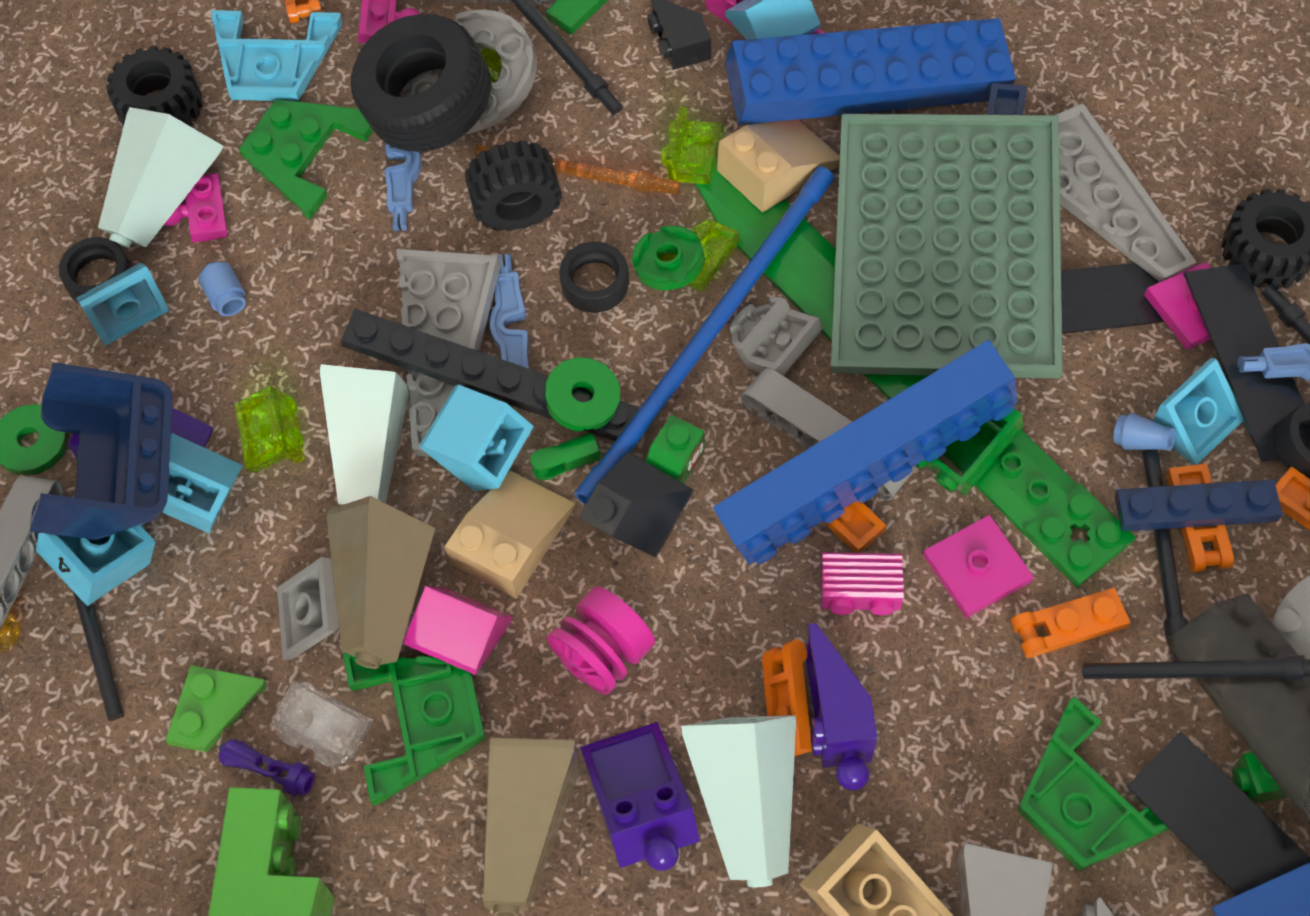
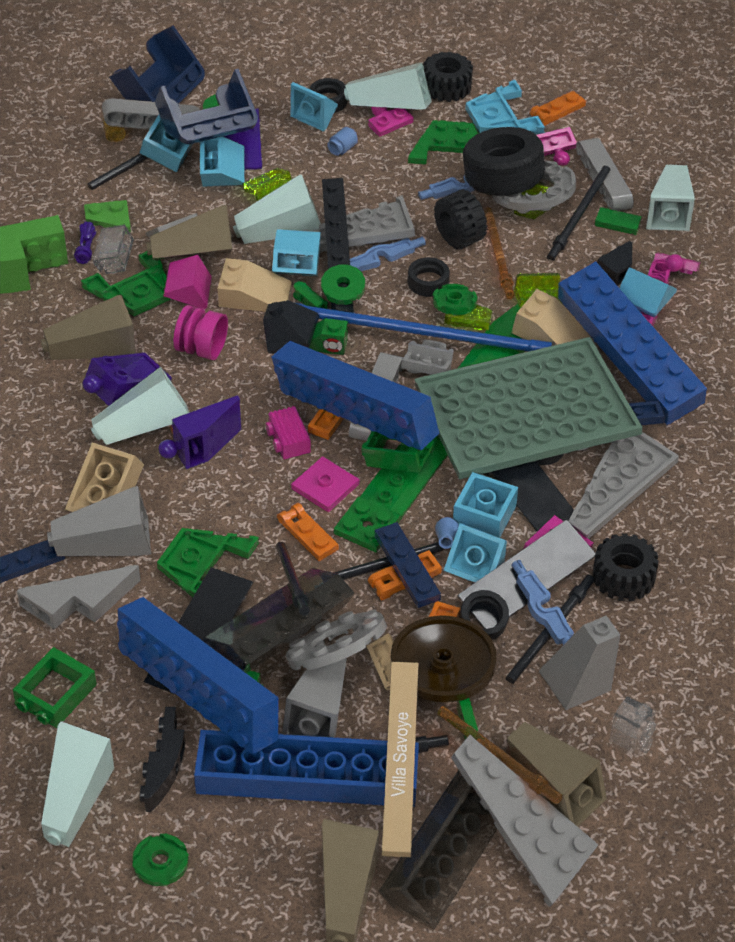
camera: 65 degrees right, 15 degrees down
(1112, 365) = (485, 504): none -> medium azure brick

